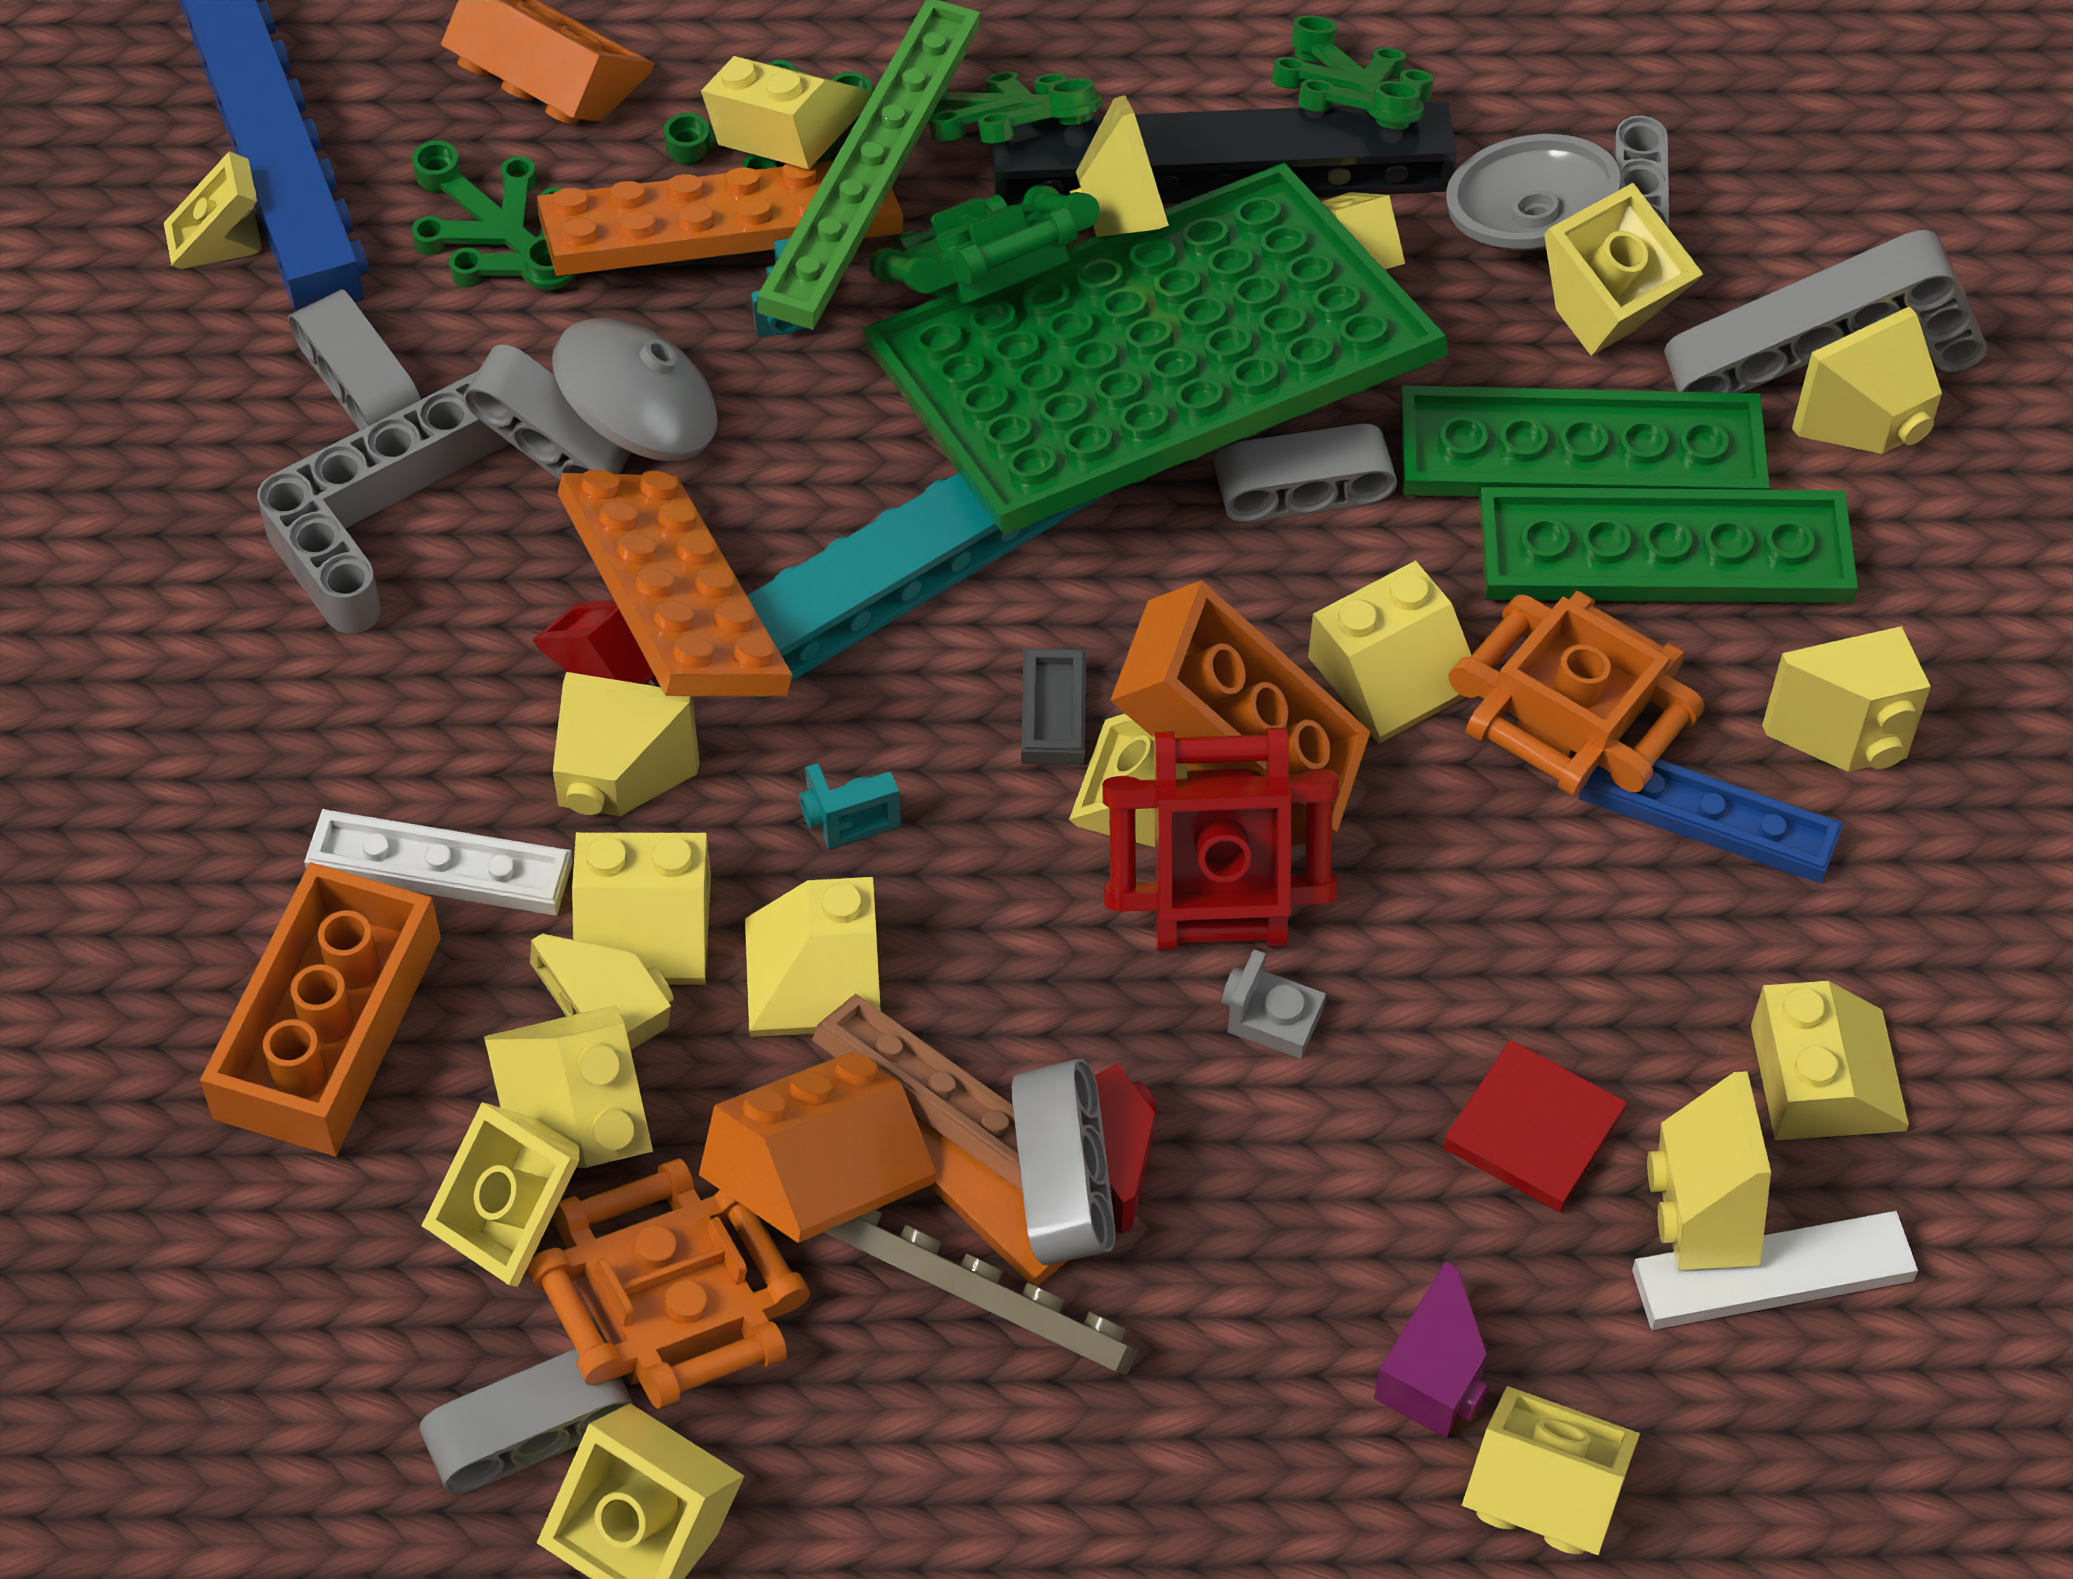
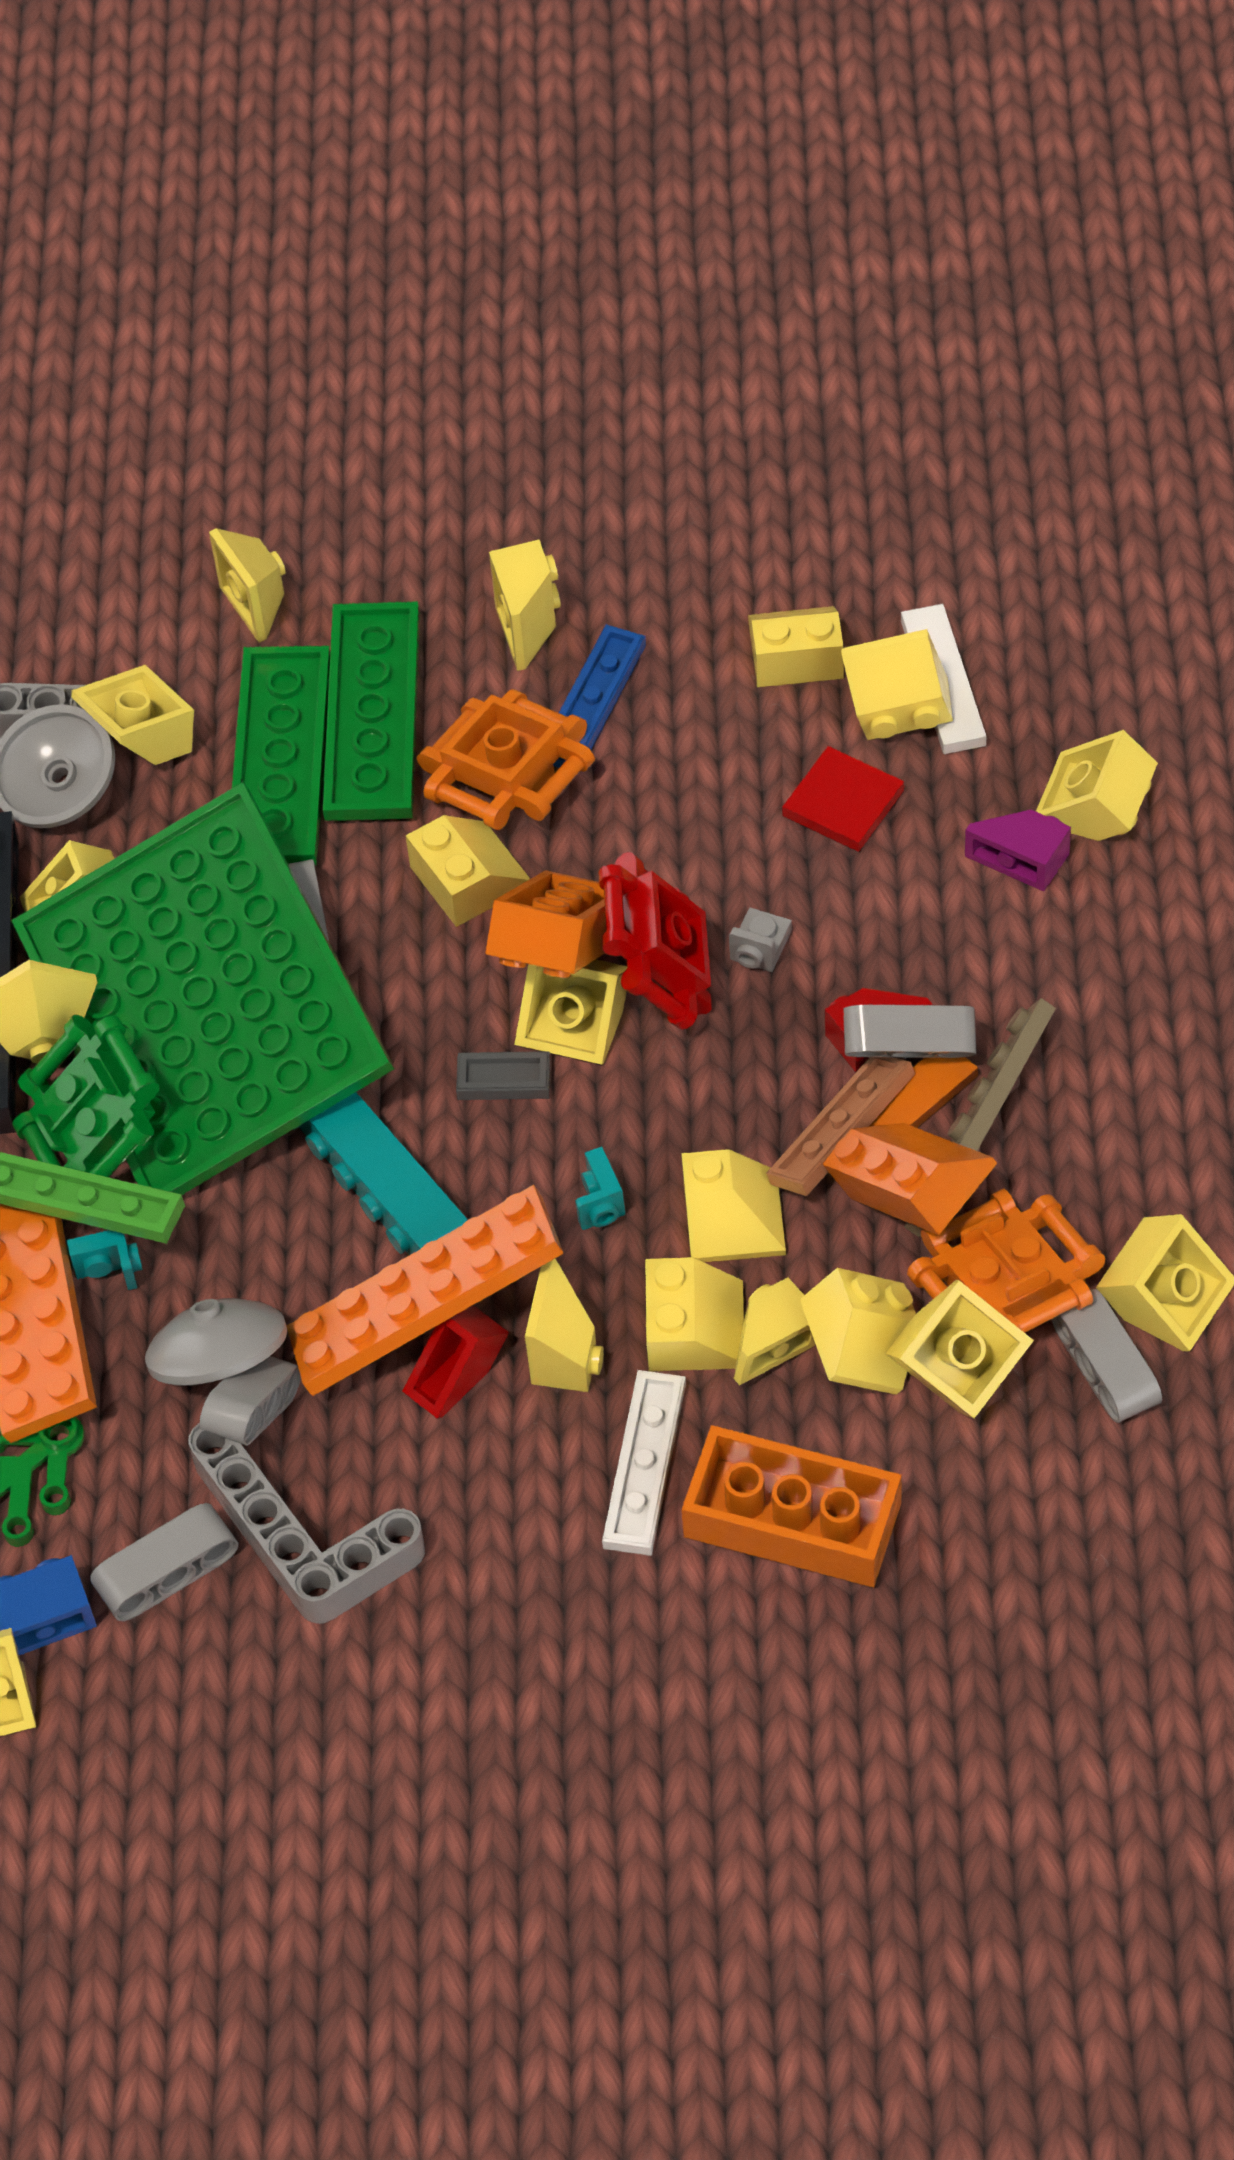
camera: 85 degrees left, 0 degrees up
(1791, 323) = (199, 601): light grey beam -> none

